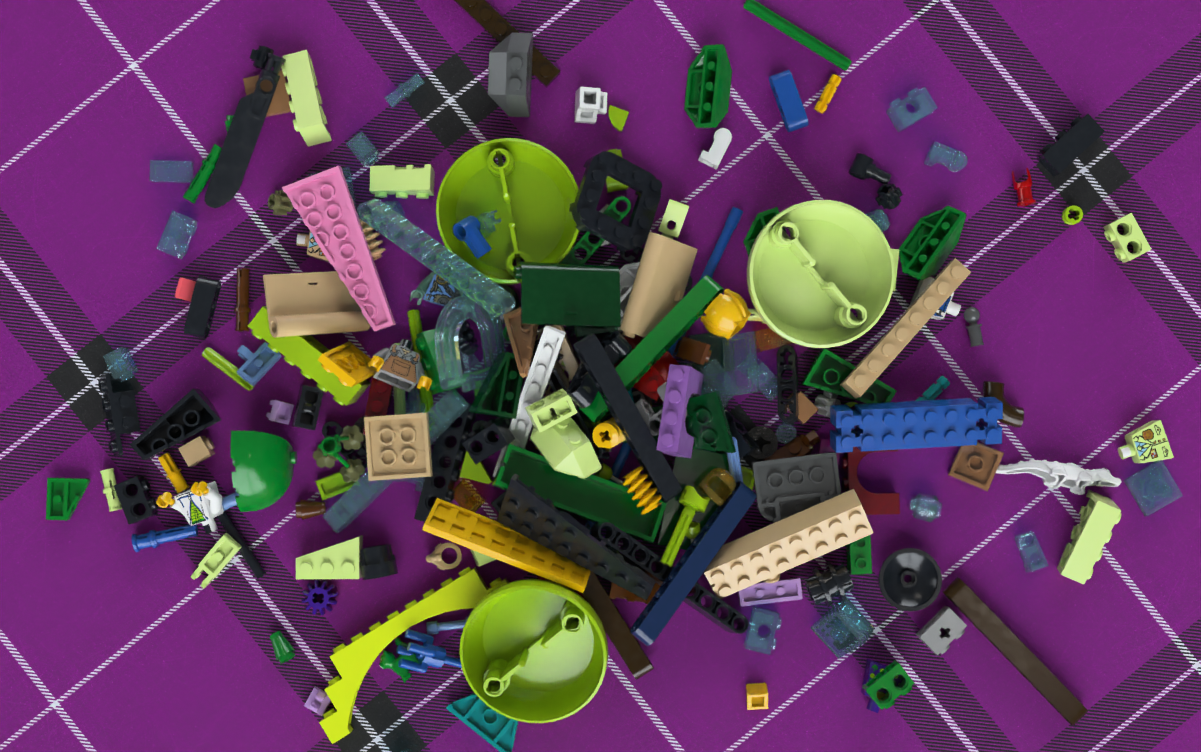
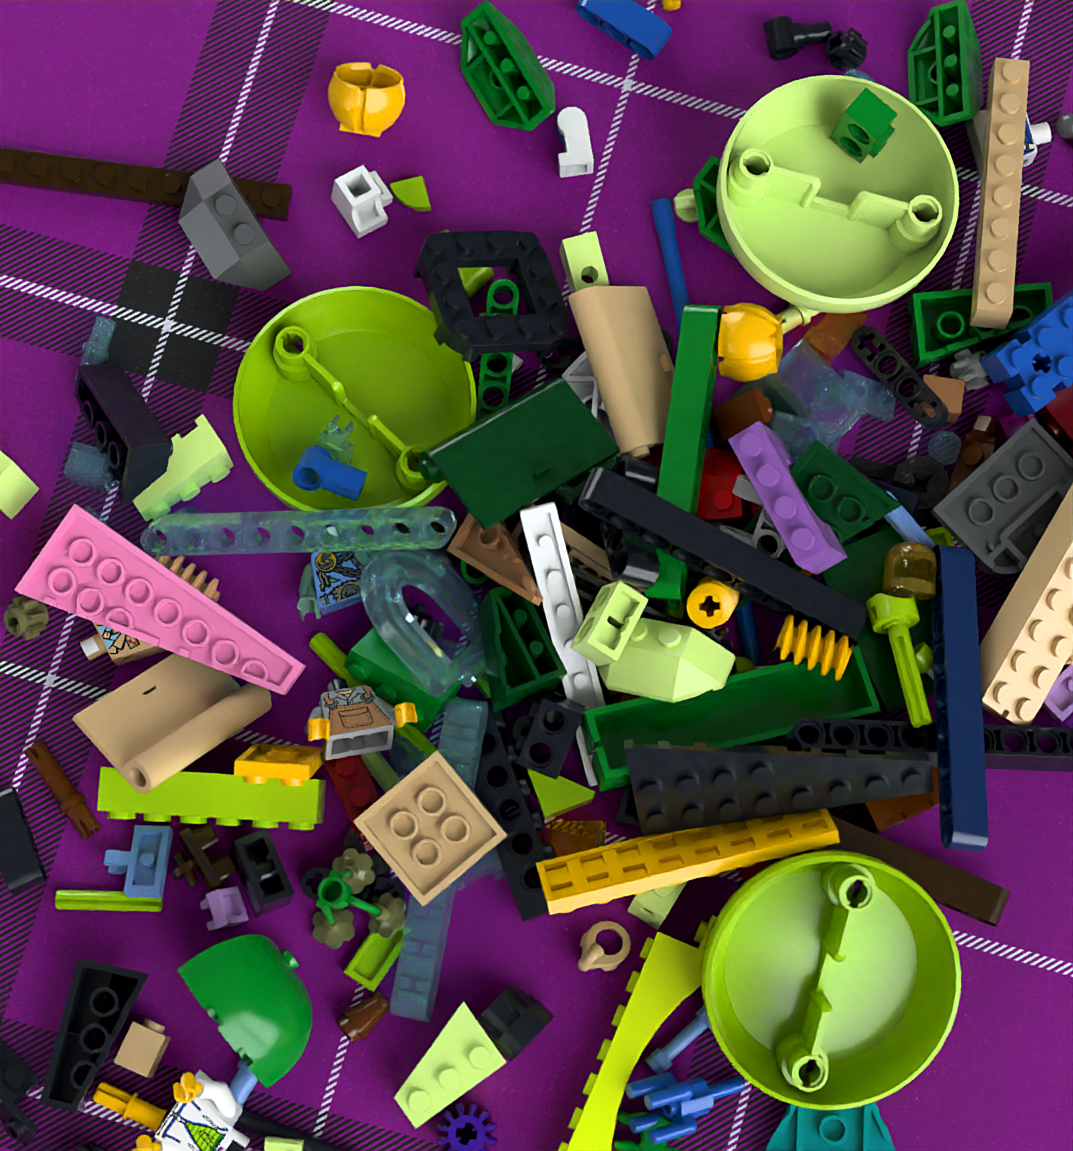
camera: 25 degrees left, 10 degrees down
(286, 391) = (195, 844): none -> dark brown hips
(389, 141) = (123, 428): none -> black wedge
(627, 52) = (365, 97): none -> yellow piece
(748, 219) = (685, 206): none -> yellowish green plate
(860, 249) = (864, 126): none -> green brick

